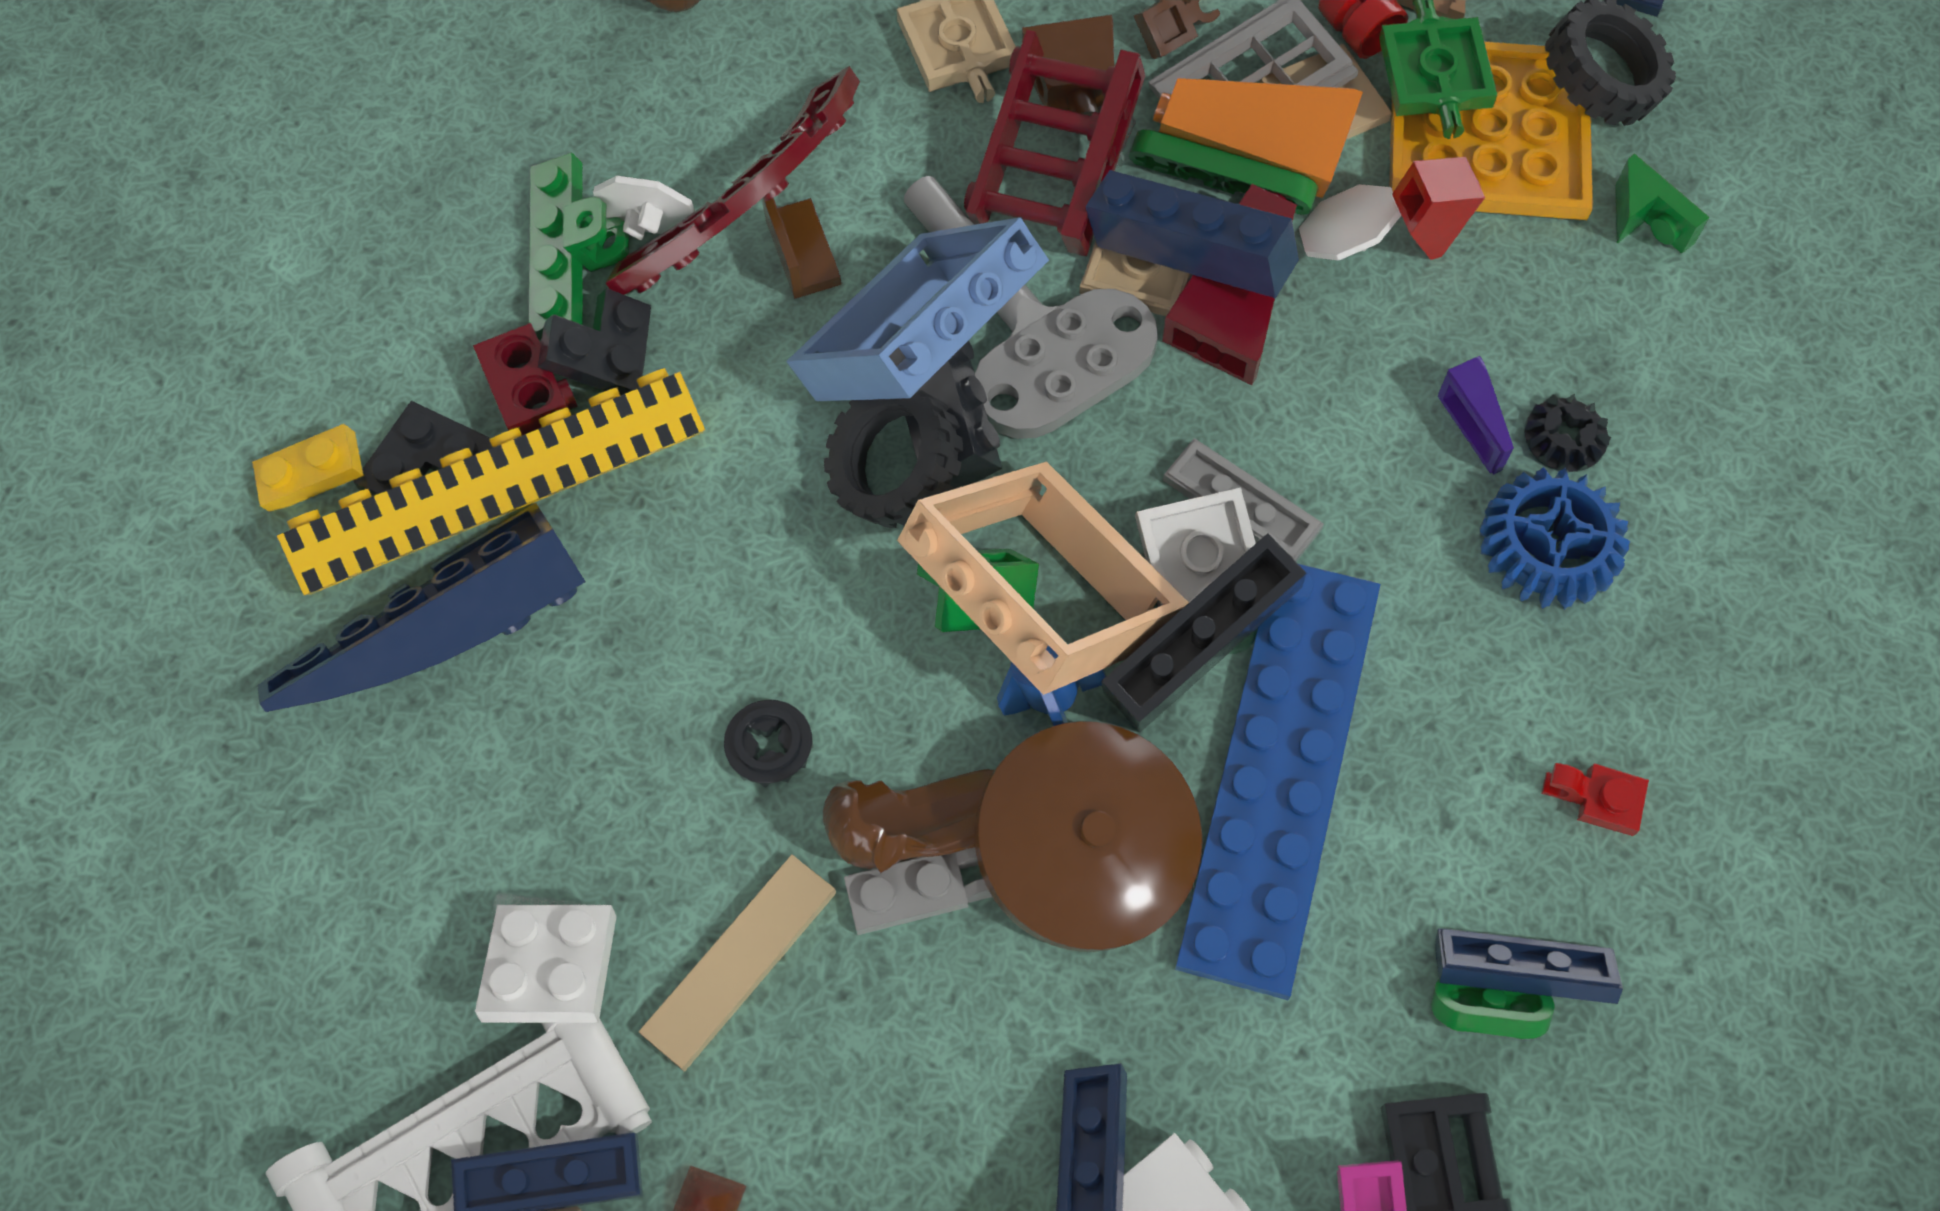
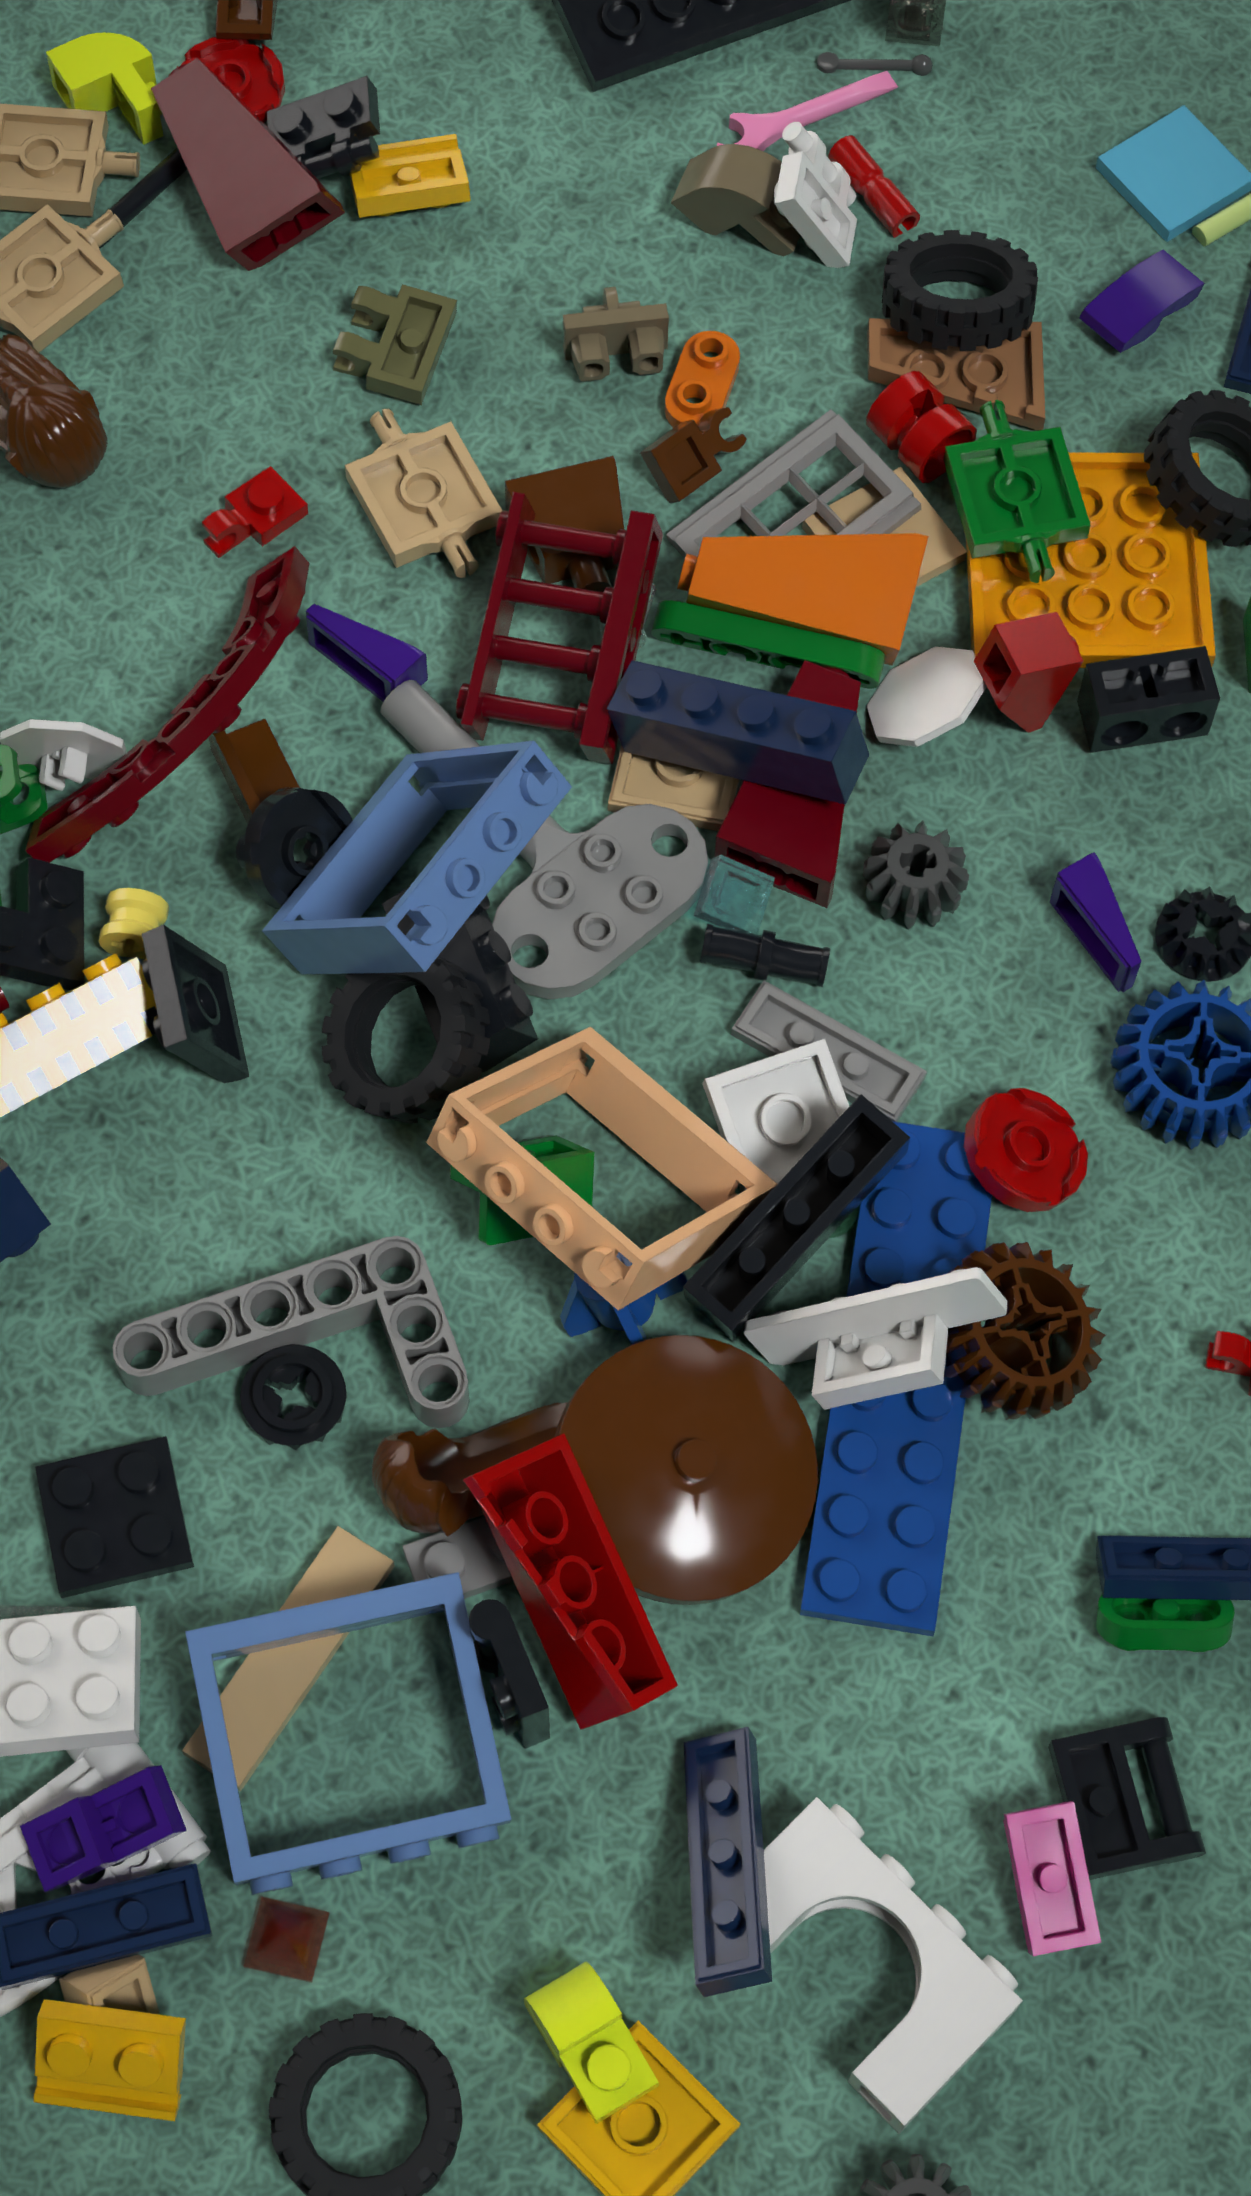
camera: 10 degrees left, 0 degrees up
(560, 1093) = (103, 1828): none -> dark purple slope
(608, 828) = (114, 1517): none -> black plate
(685, 348) = (131, 914): none -> light yellow wheel
(723, 415) = (193, 1005): none -> black plate
(759, 934) = (320, 1620): none -> medium blue window
(786, 681) = (308, 1321): none -> light grey beam
(804, 281) = (271, 837): none -> black plate
(823, 38) = (255, 509): none -> red plate
(895, 152) = (365, 653): none -> dark purple slope
(923, 1010) = (515, 1688): none -> black plate
(981, 923) = (572, 1582): none -> red wedge
(1176, 368) = (734, 895): none -> clear light blue plate
(1197, 418) = (765, 955): none -> black pin
(1265, 740) = (879, 1338): none -> white bracket
(1310, 372) = (930, 894): none -> dark grey gear
(1375, 773) = (1011, 1364): none -> reddish brown gear
(1402, 596) = (1025, 1150): none -> red tile
(1534, 237) = (1148, 699): none -> black brick

